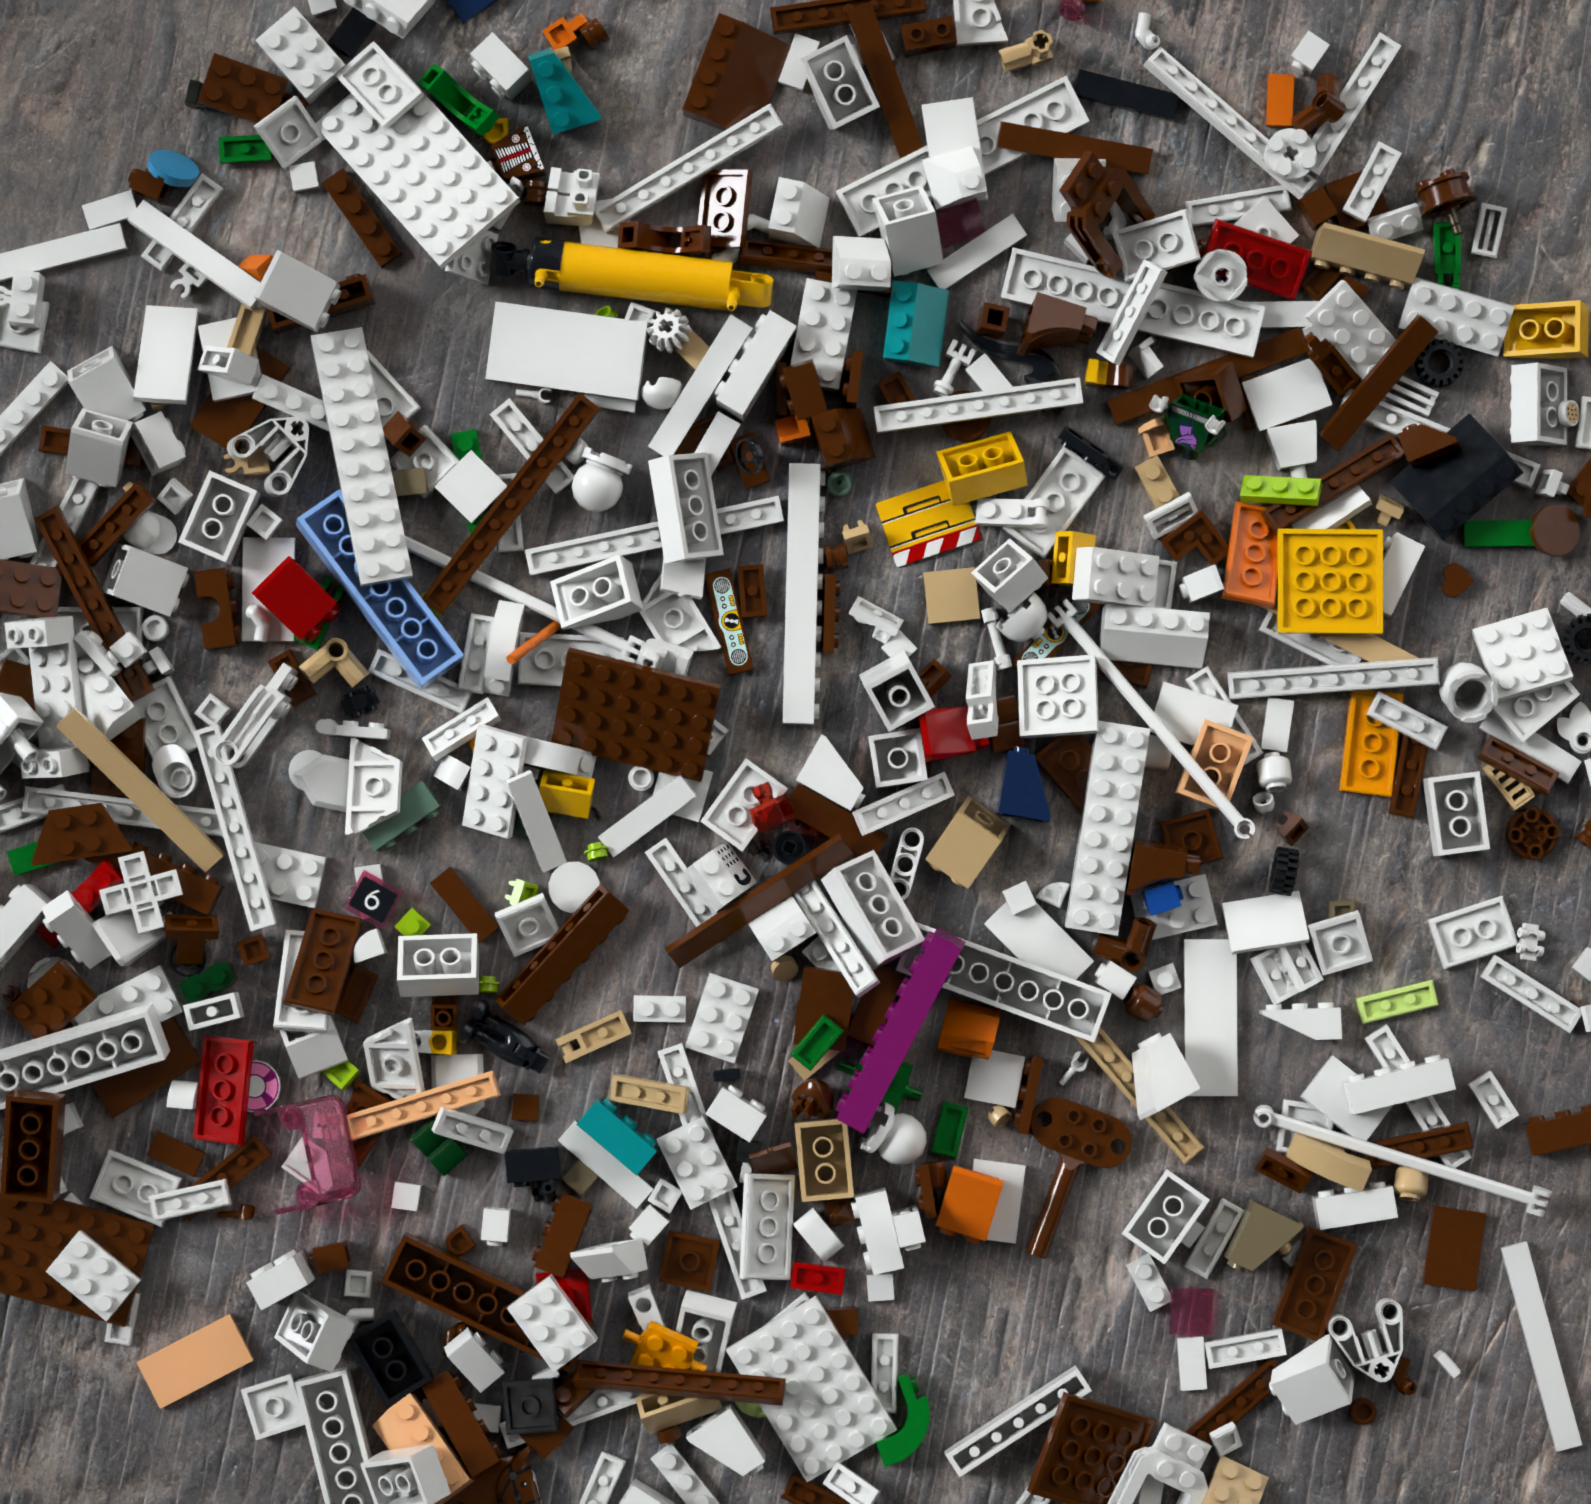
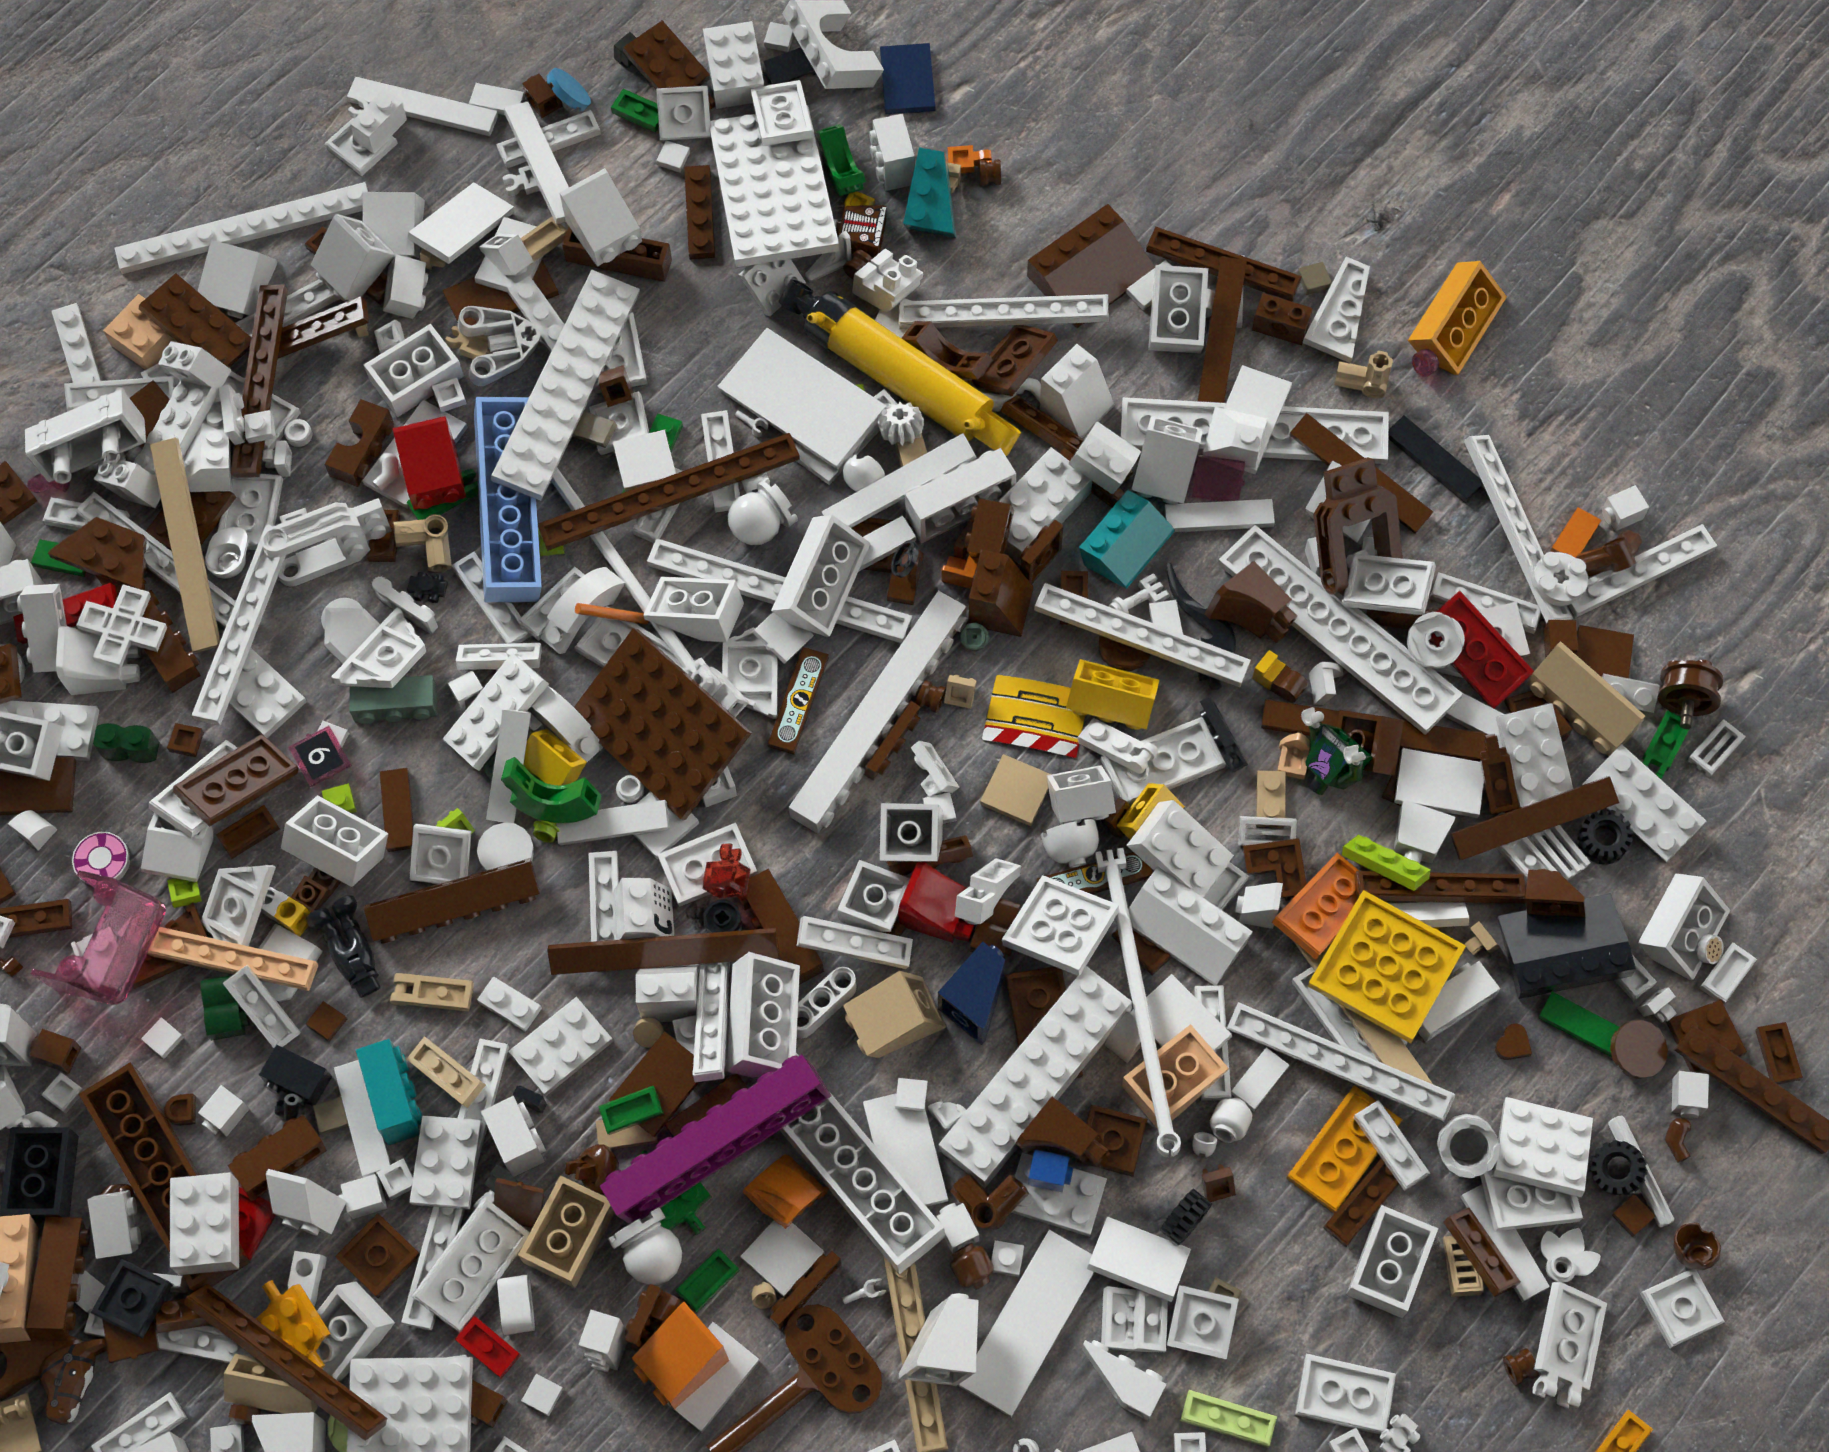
camera: 30 degrees right, 20 degrees down
(145, 580) = (316, 386): white slope -> none
(152, 534) = (348, 355): white cap -> none
(191, 936) = (135, 693): reddish brown piece -> none
(213, 1011) = (111, 768): white brick -> none
(223, 1089) = (70, 844): red tile -> none
(369, 946) = (287, 794): white brick -> none
(488, 984) = (368, 890): lime plate -> none
(590, 830) = (547, 801): none -> green arch
(752, 591) = (836, 684): reddish brown plate -> none
(831, 777) = (800, 875): white slope -> none
(839, 1211) = (551, 1295): reddish brown tile -> none
(877, 1231) = (561, 1354): white brick -> none
(992, 320) = (1199, 573): reddish brown brick -> none
(1002, 659) = (1030, 870): white bar -> none
(1131, 312) = (1332, 627): white plate -> none
(1143, 33) = (1479, 417): white arm -> none
(1371, 182) = (1625, 642): white plate -> none
(1532, 833) = (1460, 1330): reddish brown tile -> none
(1548, 331) = (1730, 863): yellow slope -> none

